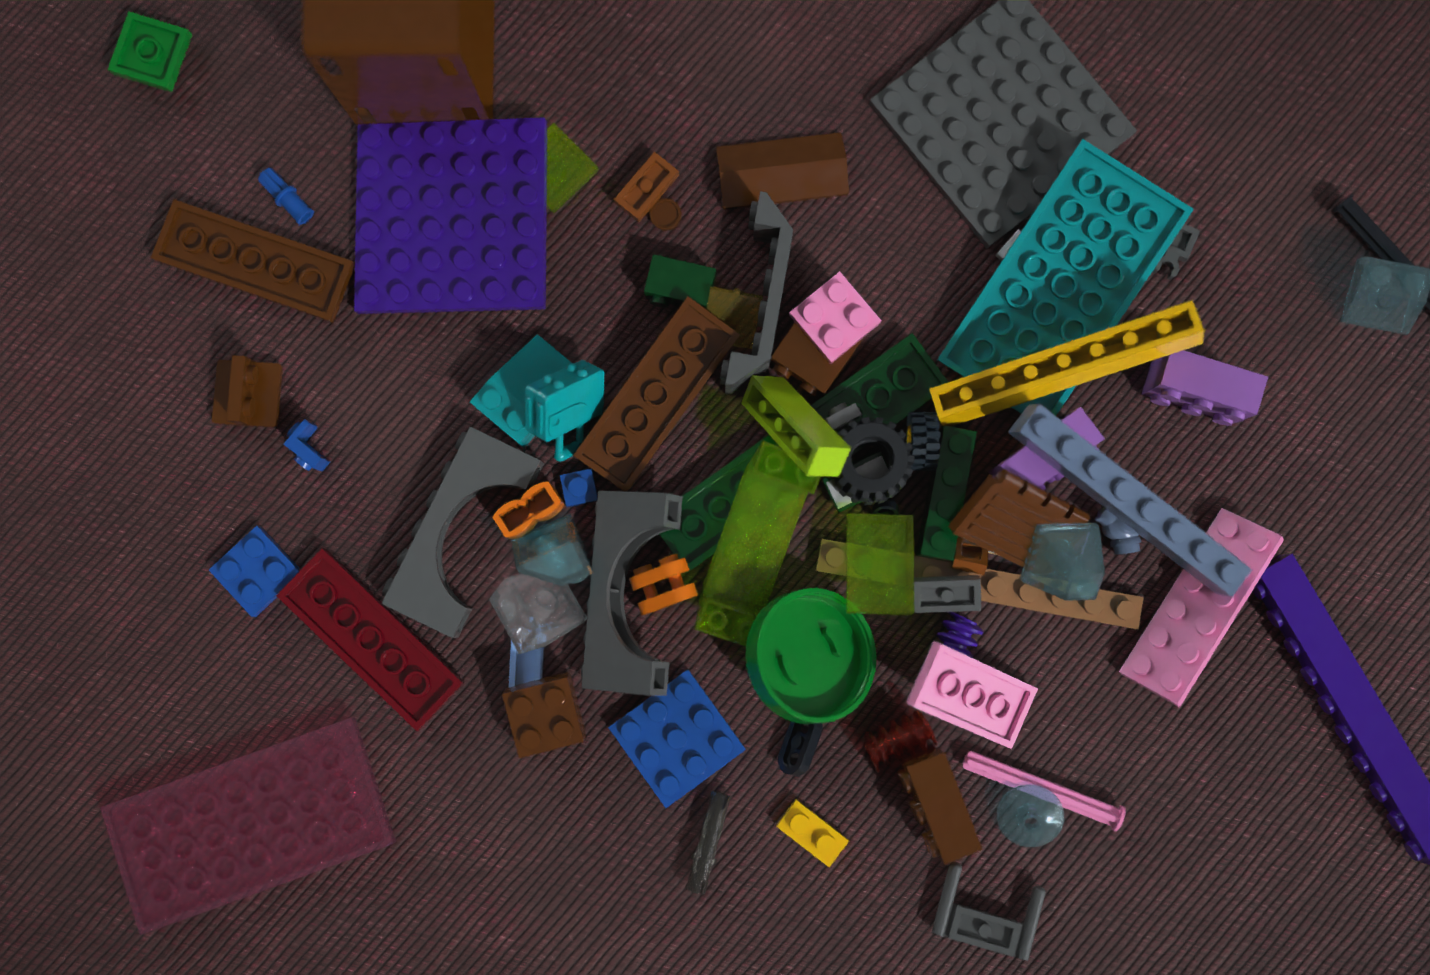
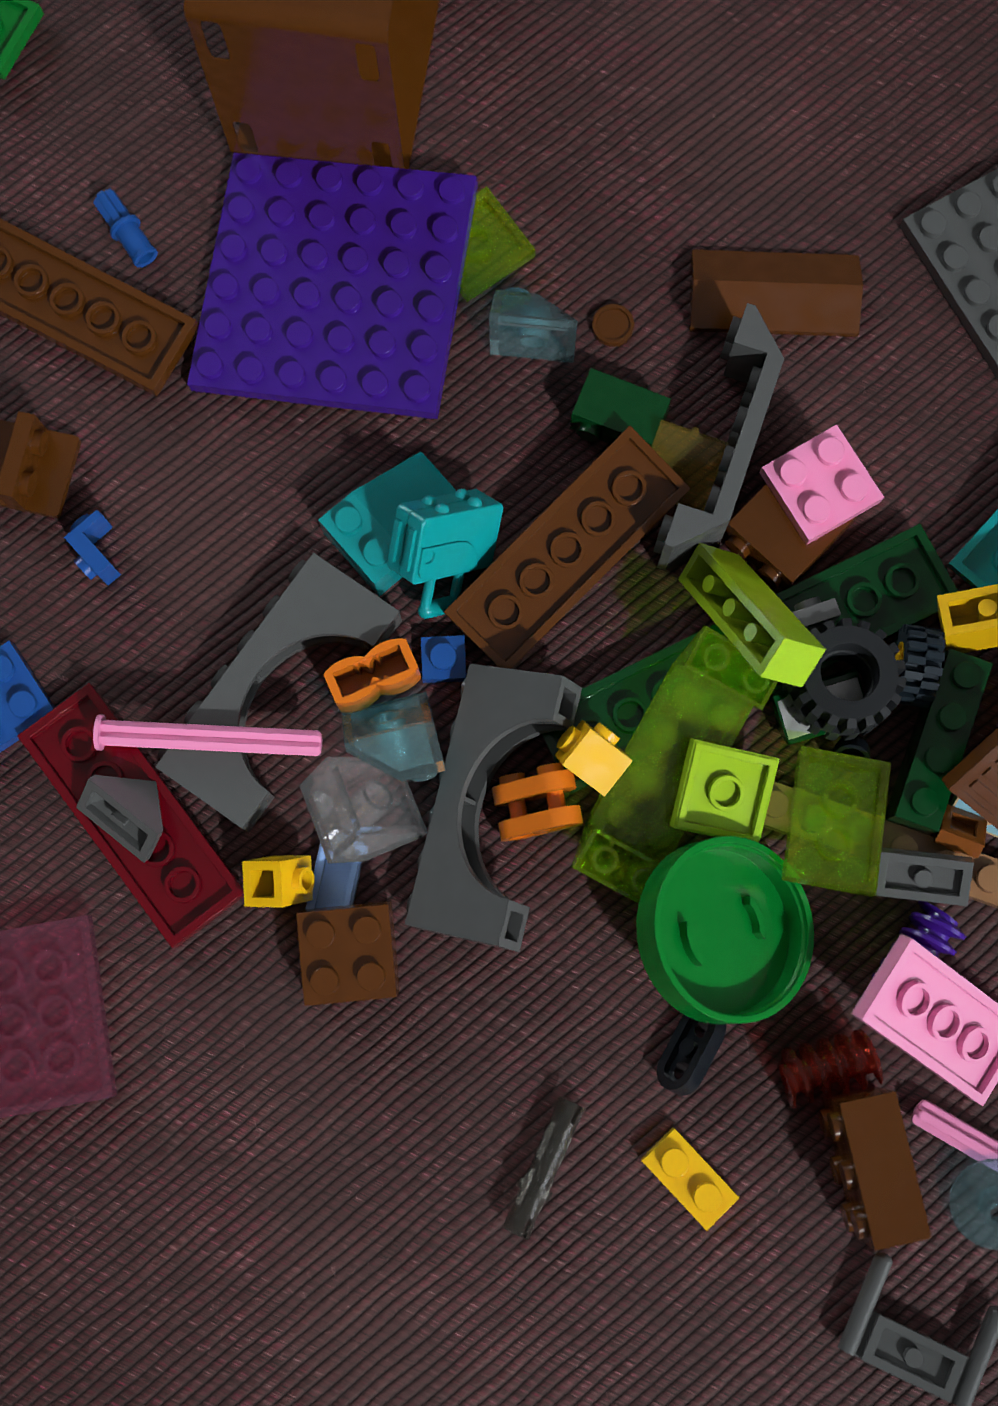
camera: 10 degrees right, 5 degrees down
(365, 638) = (125, 811): none -> dark grey slope
(414, 577) = (205, 737): none -> bright pink axle
(485, 671) = (277, 881): none -> yellow brick
(601, 227) = (530, 327): none -> clear light blue slope
(646, 187) = (595, 284): dark orange plate -> none
(677, 739) = (523, 1017): blue plate -> none
(697, 545) = (593, 755): none -> yellow brick
(796, 555) = (724, 791): none -> lime tile

